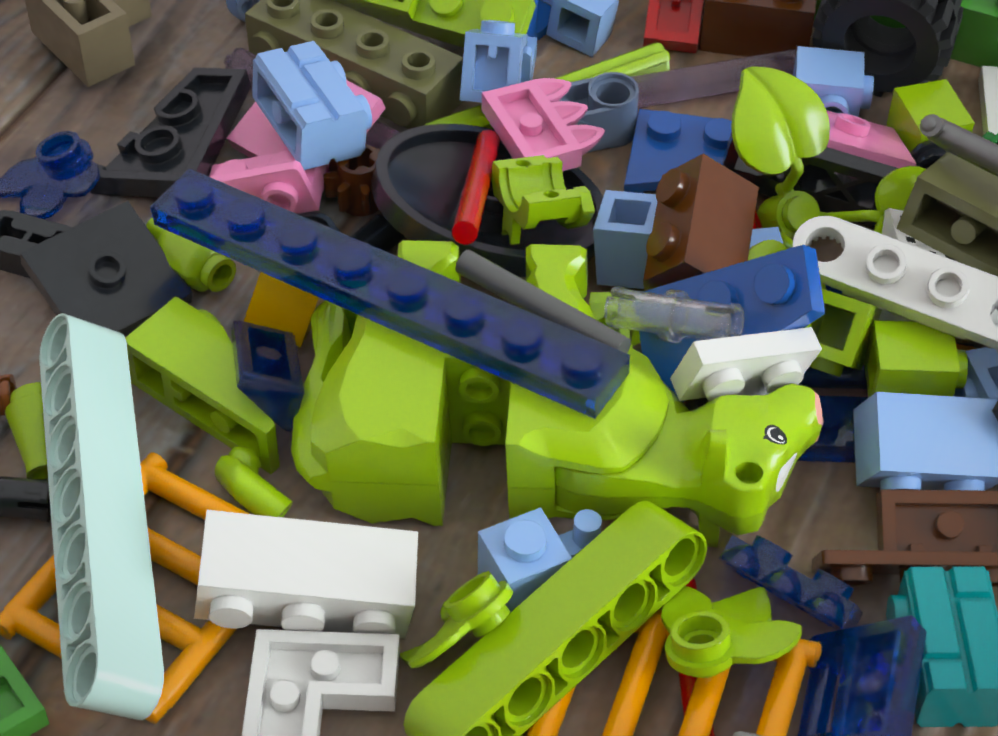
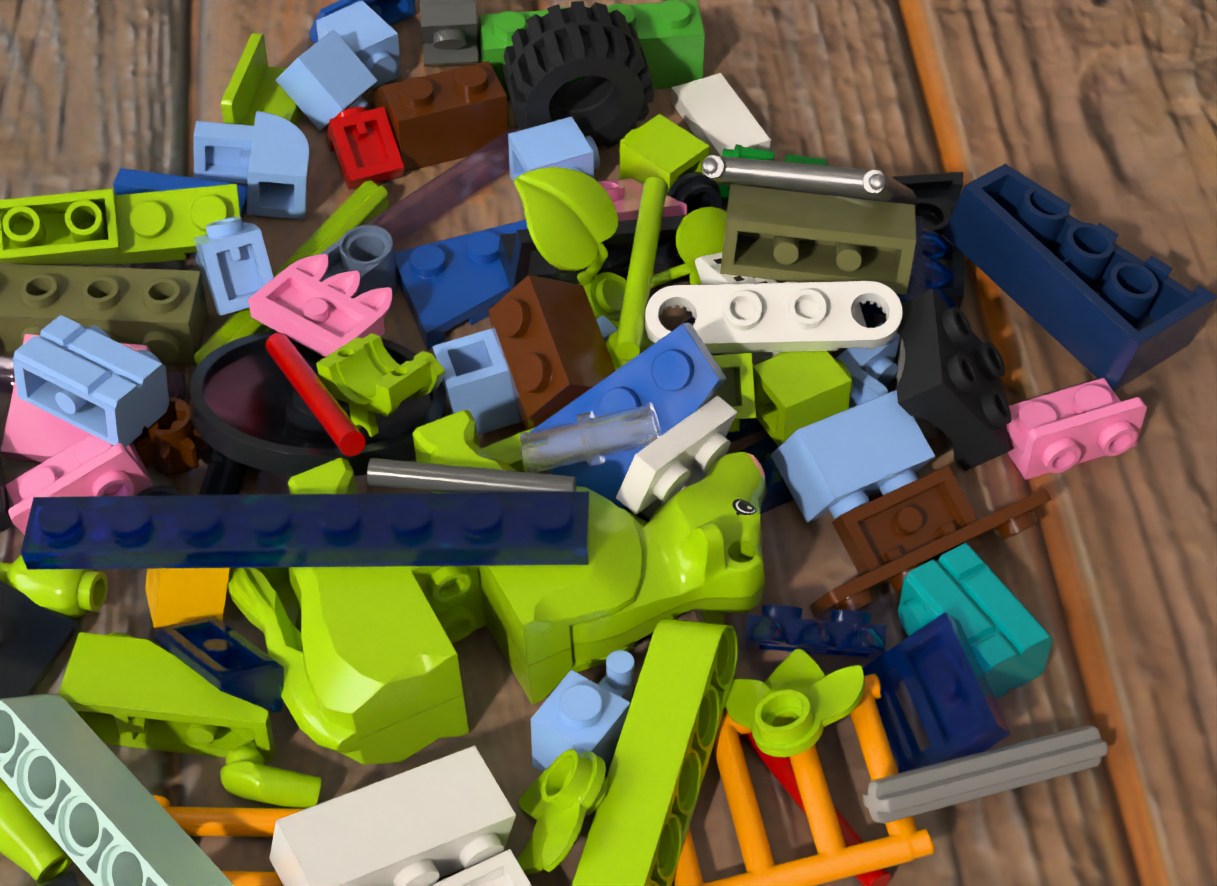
camera: 30 degrees left, 0 degrees up
(833, 188) = (641, 269): none -> lime bar

